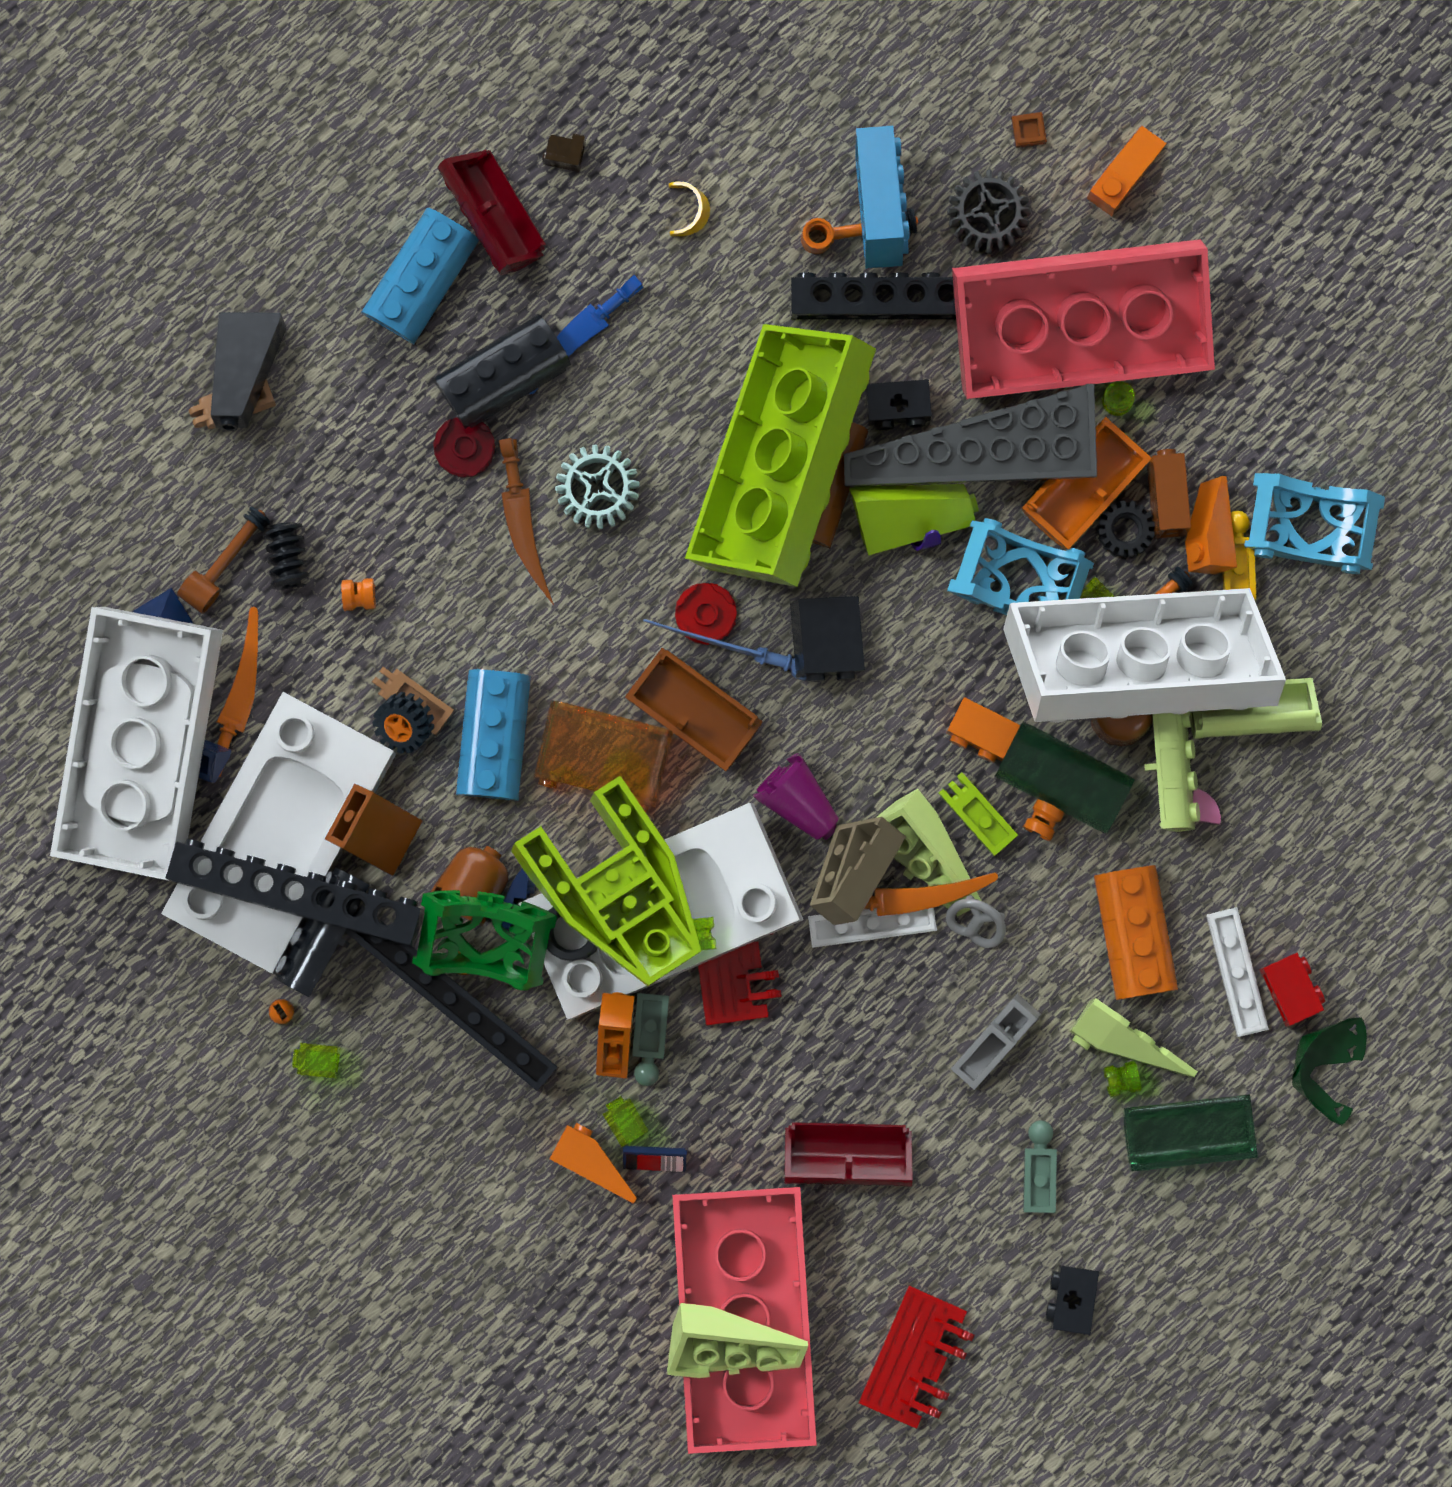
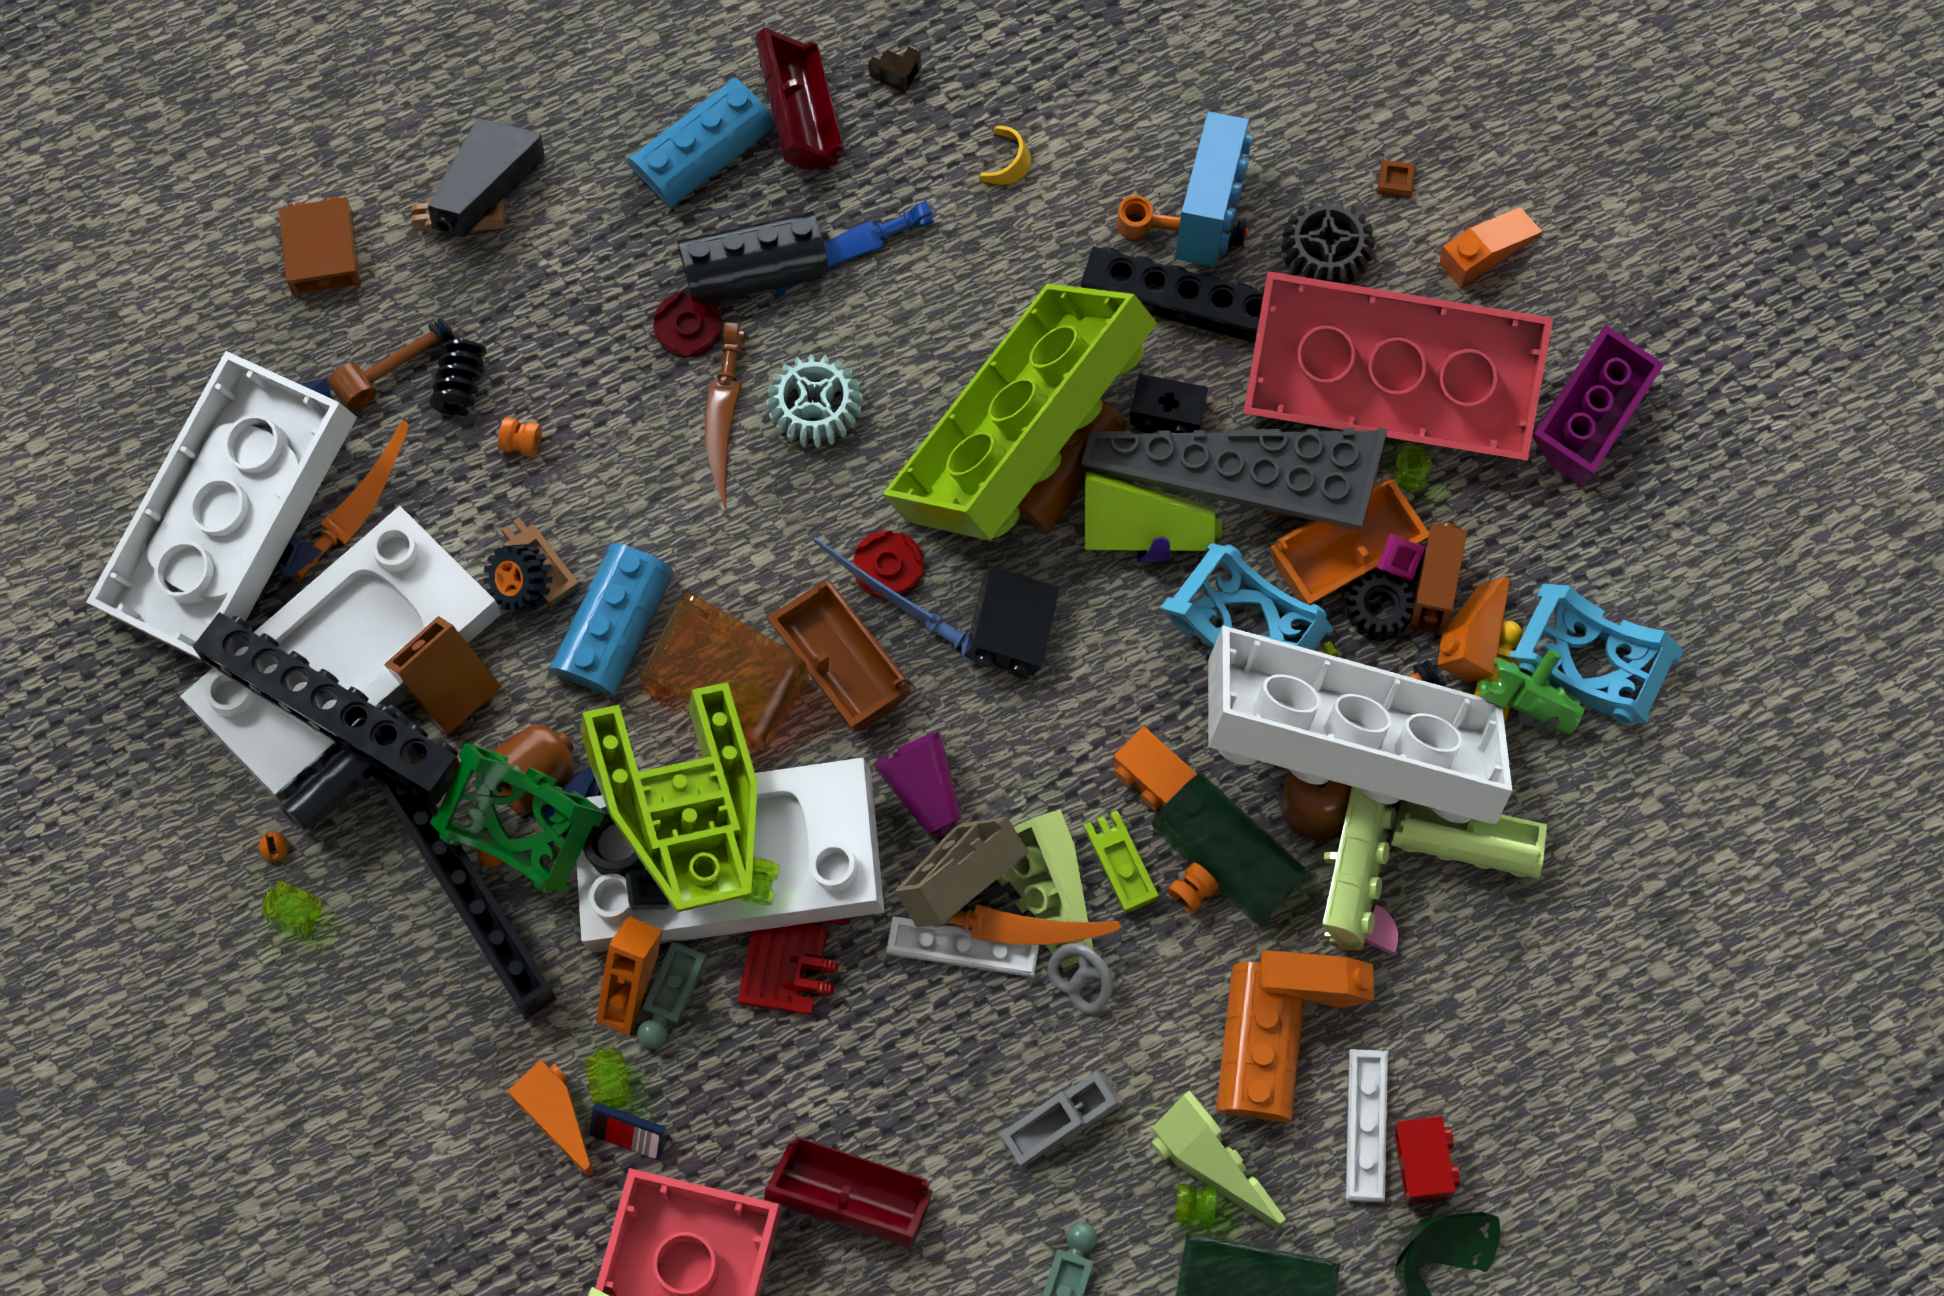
camera: 20 degrees right, 15 degrees down
(121, 469) = (319, 245): none -> dark orange brick
(606, 968) = (644, 891): none -> black tile
(1133, 485) = (1401, 557): none -> dark pink tile
(1167, 869) = (1318, 978): none -> orange slope
(1258, 299) = (1595, 405): none -> magenta slope
(1274, 576) = (1533, 697): none -> bright green piece

